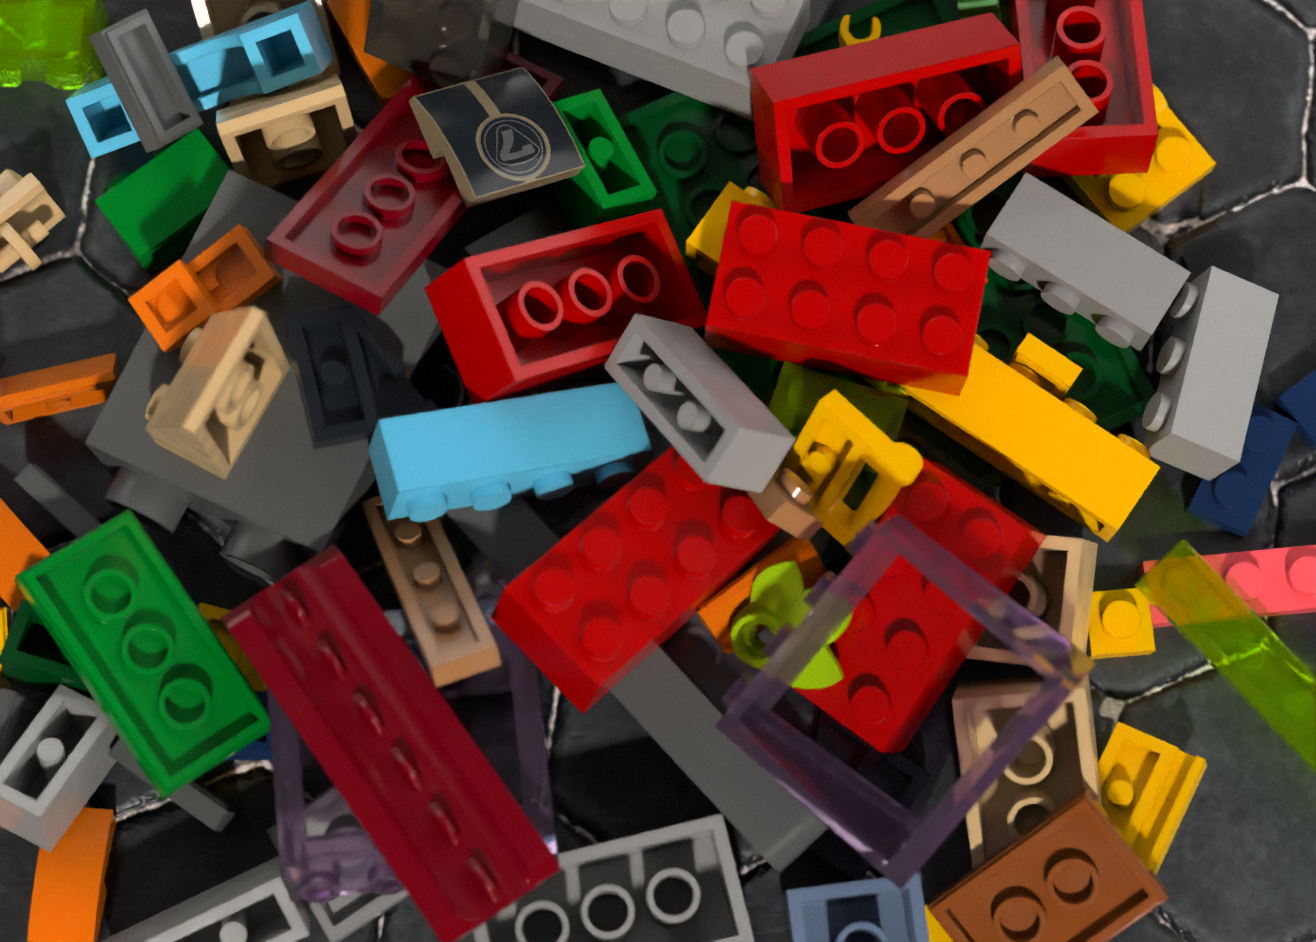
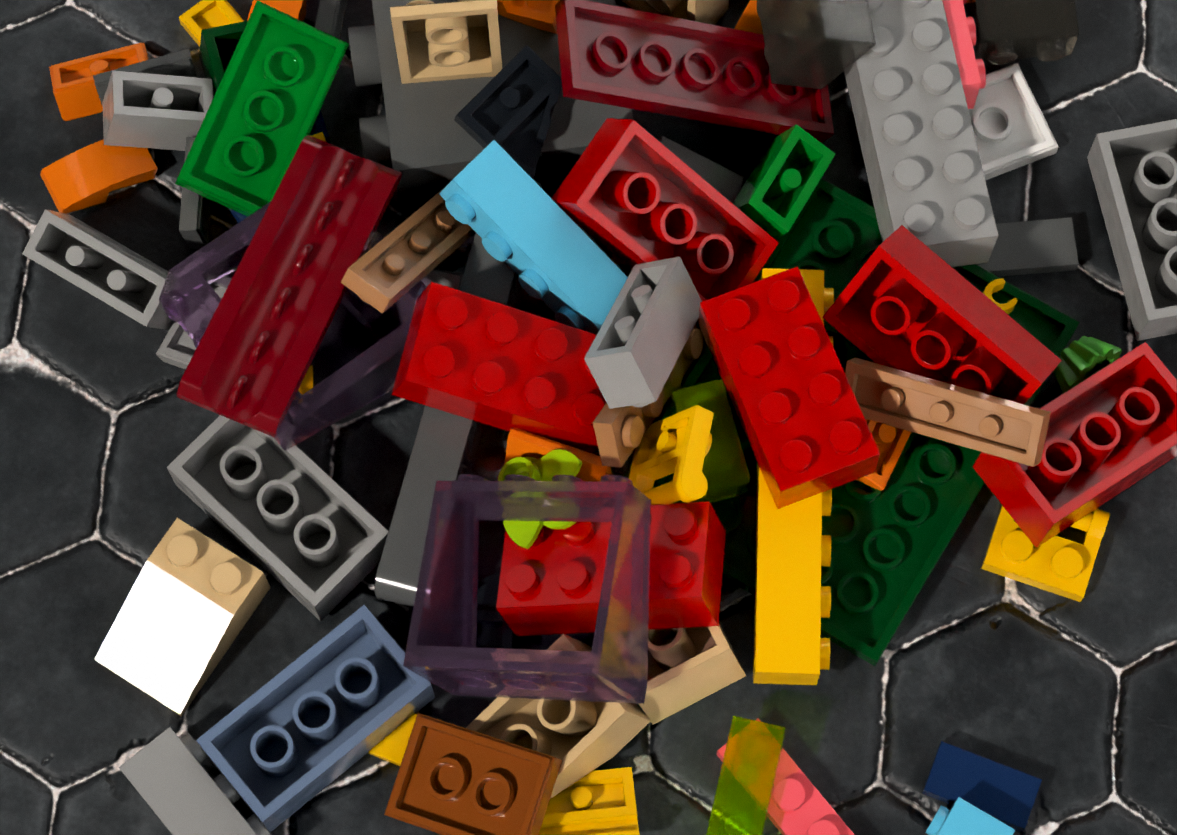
camera: 60 degrees right, 5 degrees down
(497, 135) = (749, 104): black slope -> none
(1049, 365) = (842, 560): yellow tile -> none
(1082, 263) = (934, 541): light grey brick -> none
(1120, 624) = (702, 729): yellow plate -> none
(1209, 373) = (919, 675): light grey brick -> none
(1237, 494) = (874, 748): dark blue plate -> none

